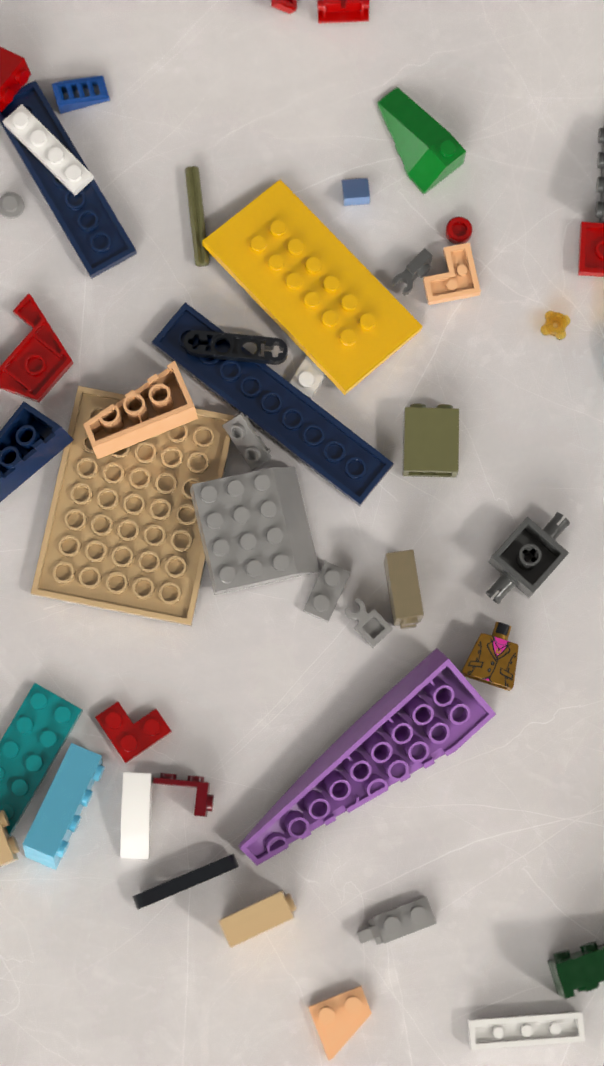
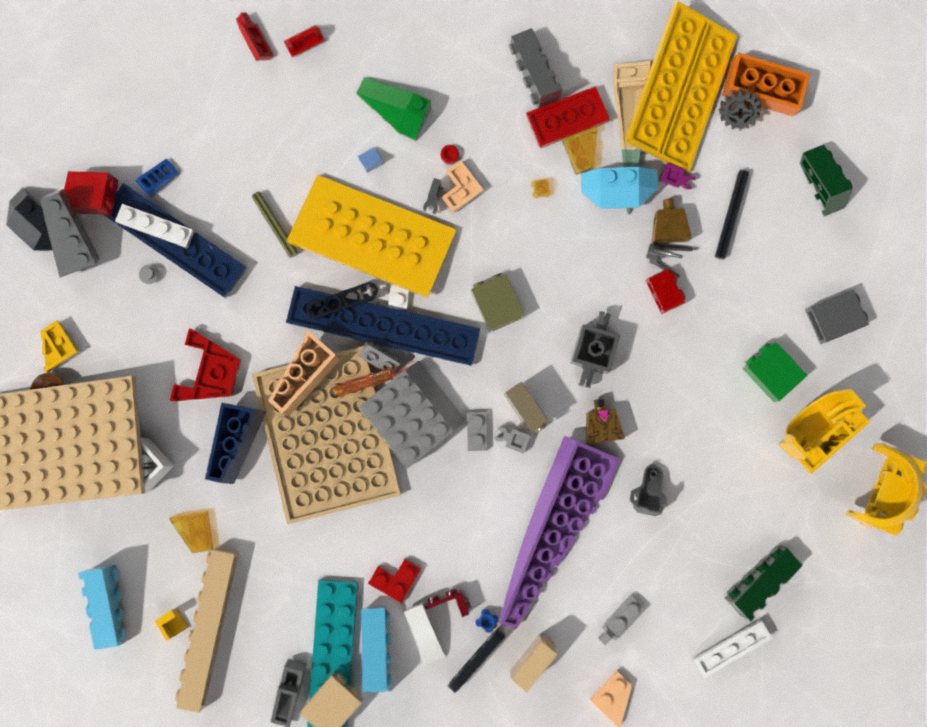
camera: 25 degrees left, 5 degrees up
(212, 460) = (364, 382): none -> clear orange pin
(223, 846) = (486, 615): none -> blue plate
(511, 776) = (649, 495): none -> dark grey piece

